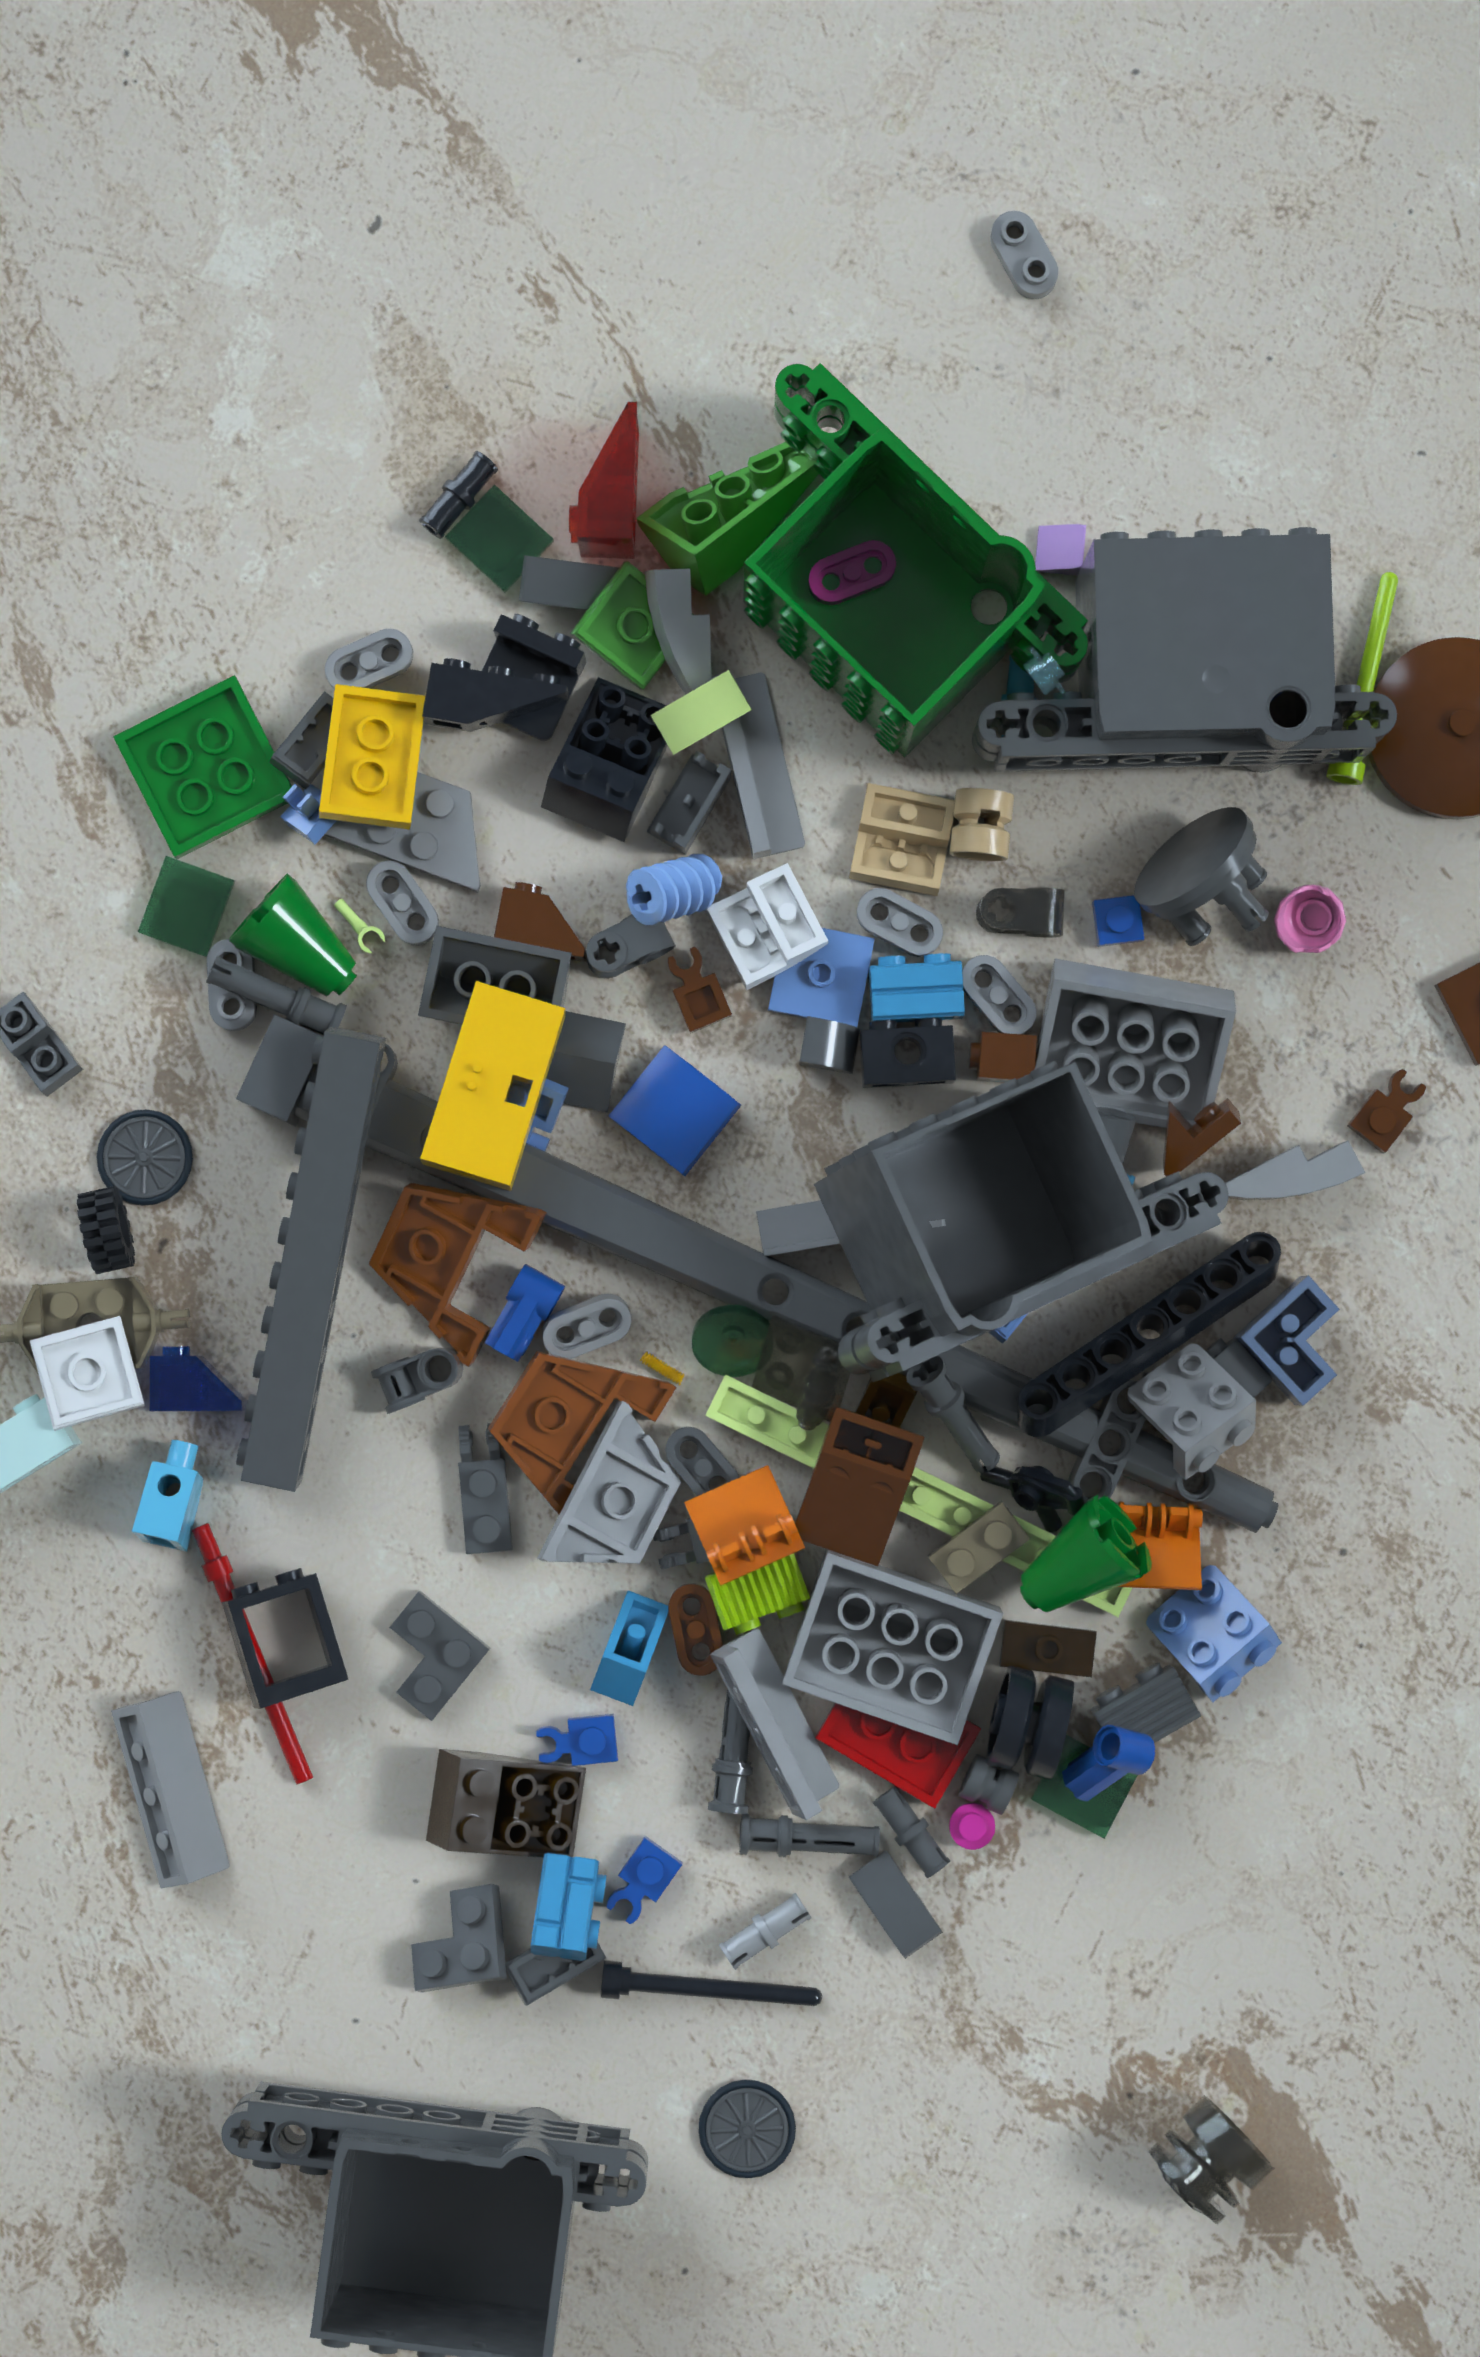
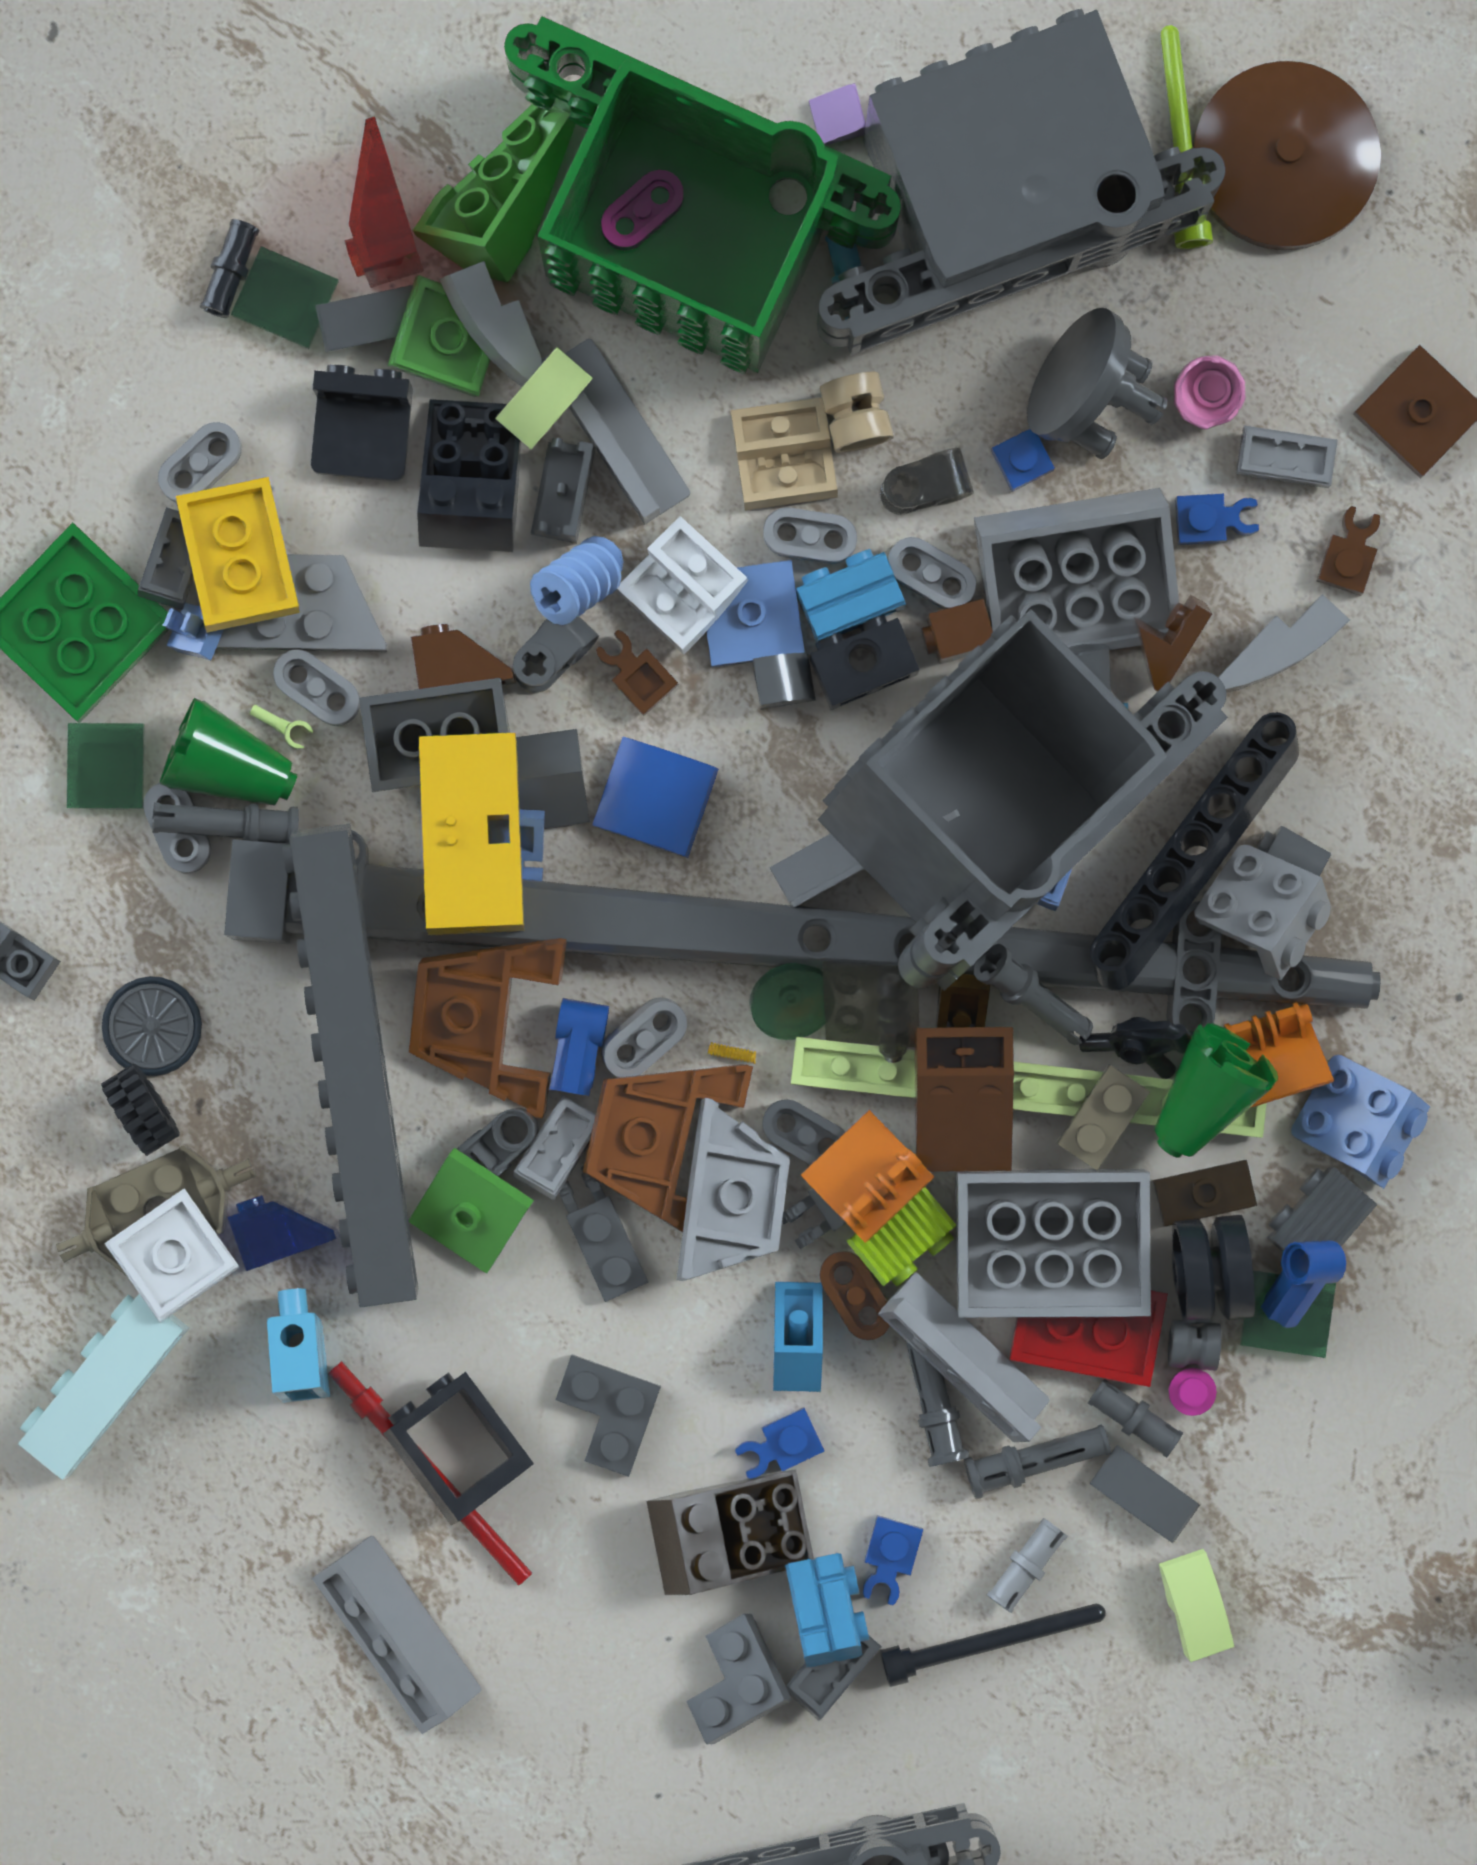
camera: 20 degrees left, 0 degrees up
(373, 1428) = (470, 1210): none -> bright green plate
(471, 1399) = (556, 1148): none -> light grey plate
(477, 699) = (319, 462): black slope -> none
(747, 2129) = (1077, 1764): dark grey wheel -> none
(907, 2022) = (1197, 1605): none -> yellowish green slope
(1044, 672) = (867, 240): clear light blue plate -> none
(1266, 1034) = (1205, 518): none -> blue plate
(1279, 1339) = (1324, 811): sand blue brick -> none
(1359, 1003) = (1286, 456): none -> light grey plate

